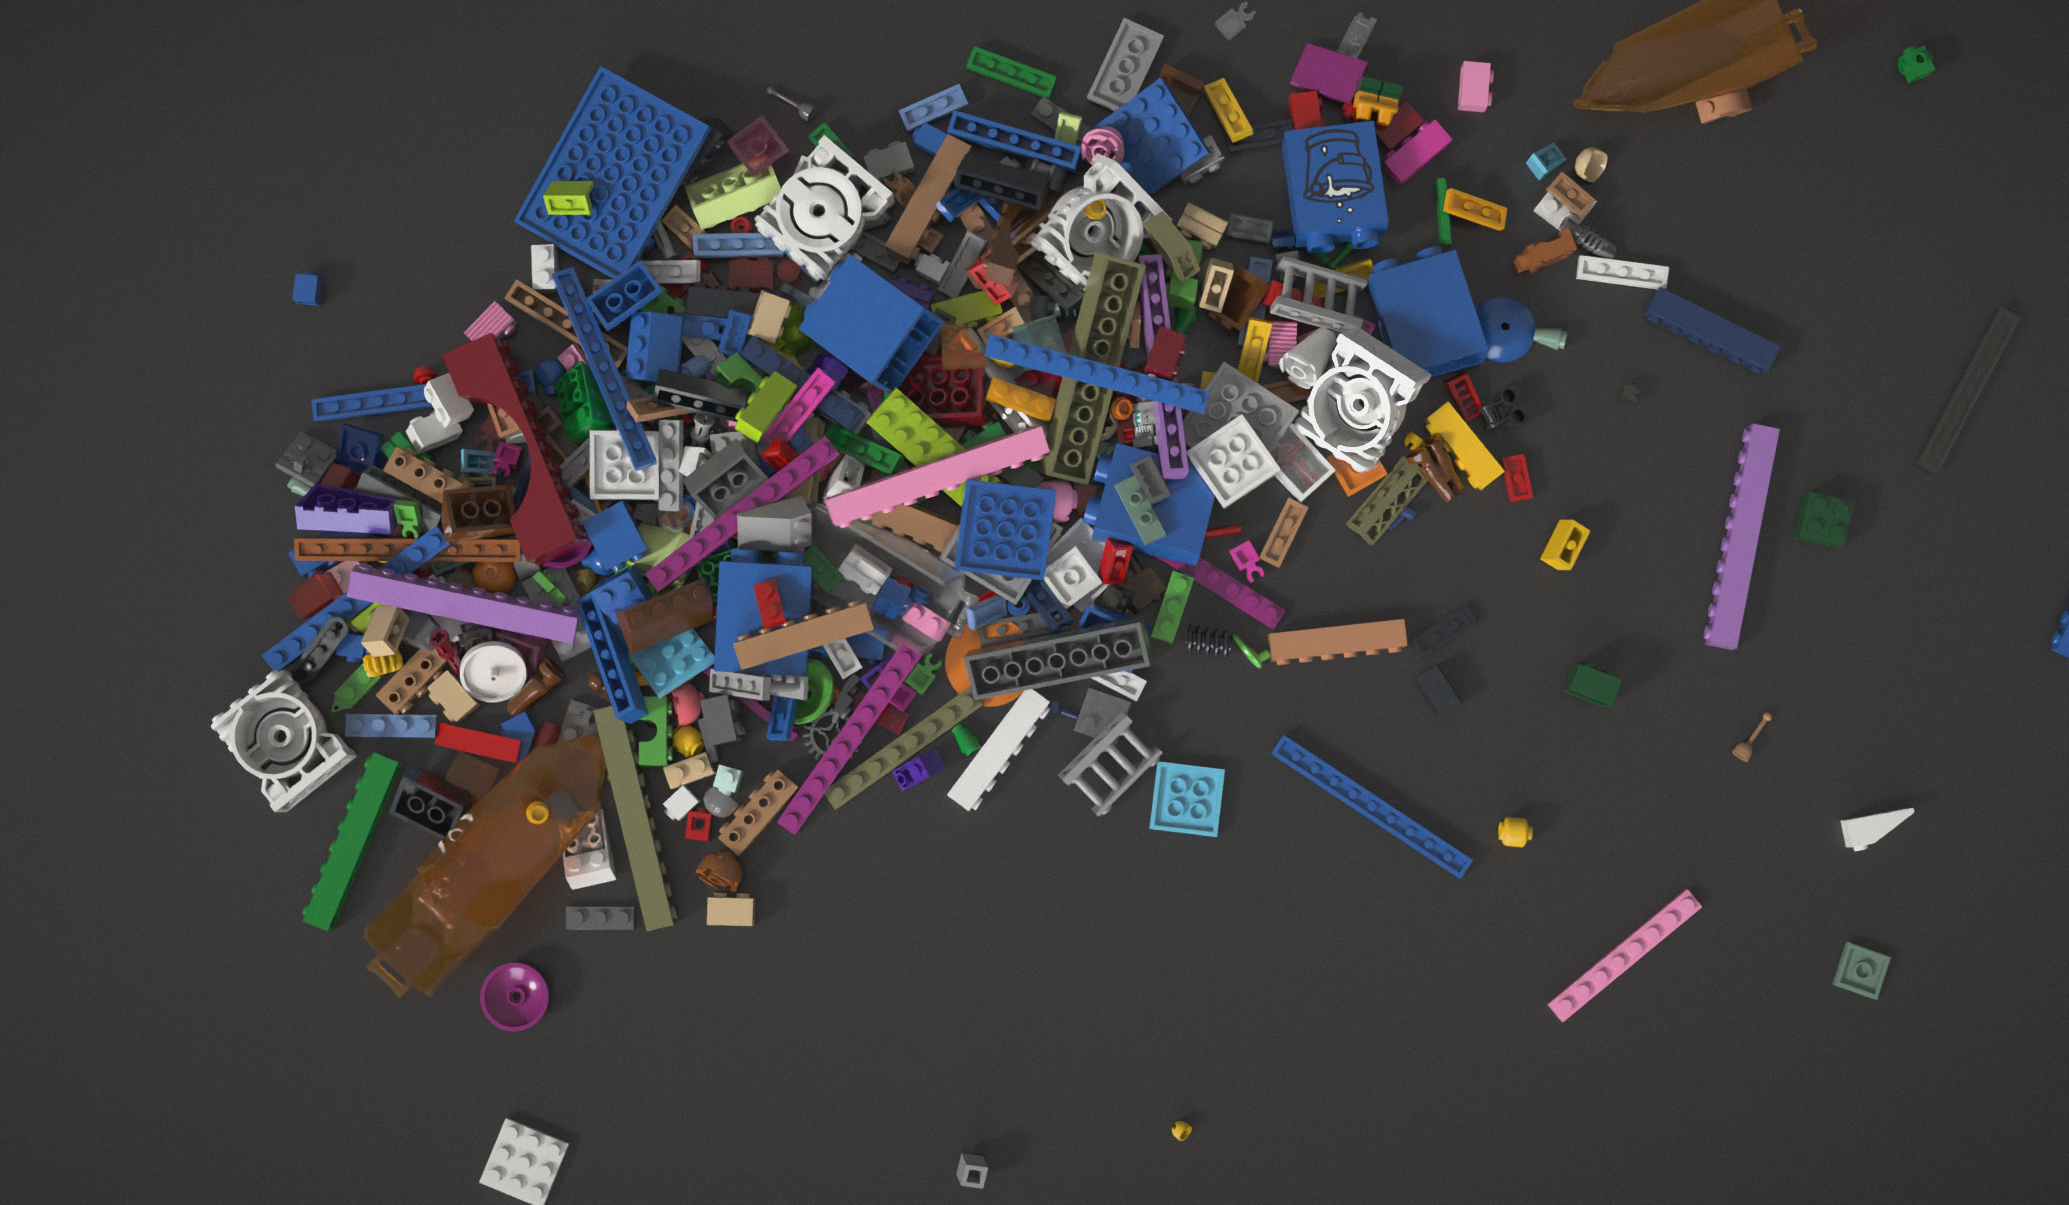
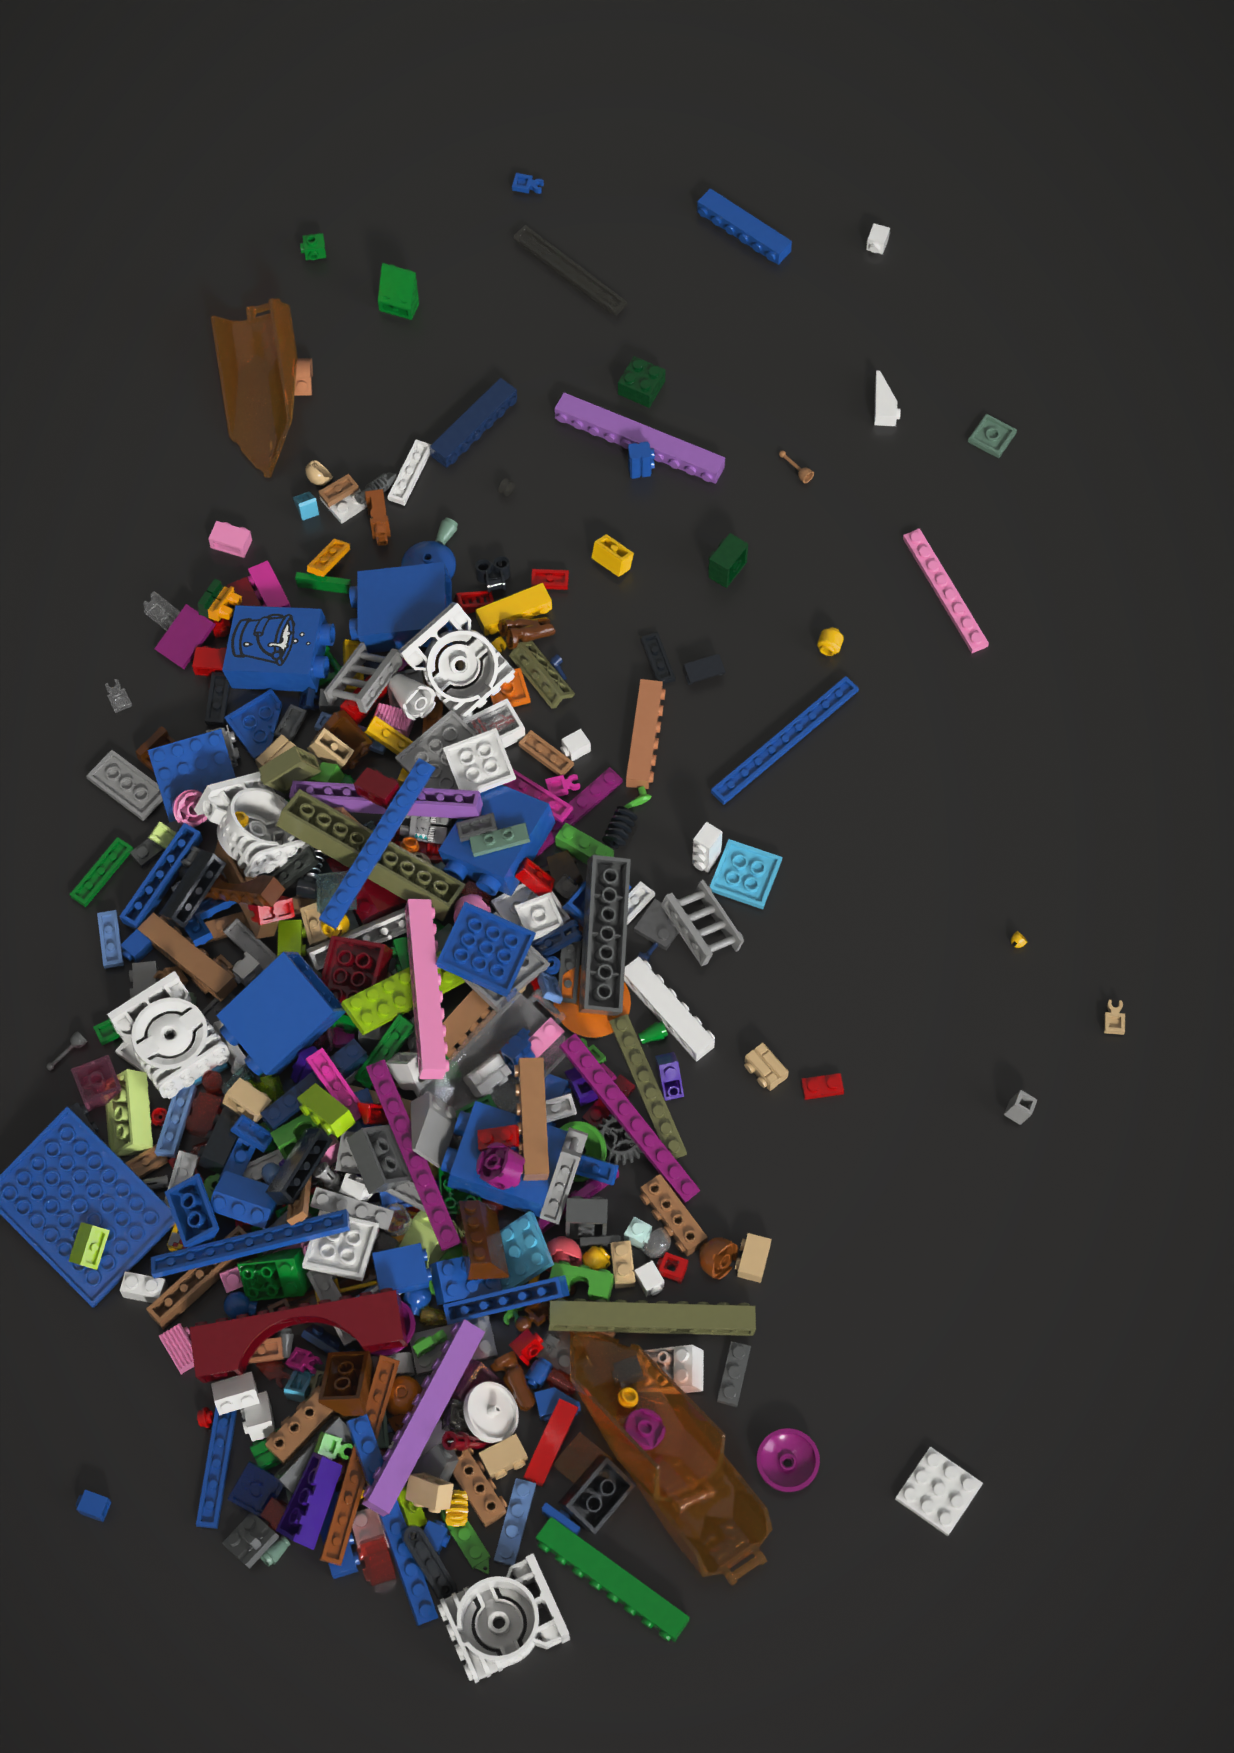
camera: 80 degrees left, 20 degrees down
(402, 768) = (560, 1516): none -> blue plate
(506, 838) = (645, 1428): none -> magenta tile
(550, 710) = (538, 1373): none -> blue brick
(574, 691) = (527, 1346): none -> red brick
(733, 615) = (500, 1166): none -> magenta brick
(842, 707) = (594, 1116): dark grey slope -> none
(949, 942) = (822, 1086): none -> red plate
(954, 875) = (765, 1067): none -> tan brick
(959, 349) = (324, 951): clear orange wing -> none
(1020, 399) = (379, 916): light orange plate -> none
(1198, 748) = (707, 847): none -> white brick
(1222, 539) = (558, 806): none -> dark pink plate
(1228, 110) = (189, 715): yellow plate -> none
(1239, 190) = (256, 723): none -> blue plate
(1301, 563) = (575, 745): none -> white brick
(1706, 546) = (640, 459): none -> blue brick
(1870, 187) = (398, 291): none -> green slope

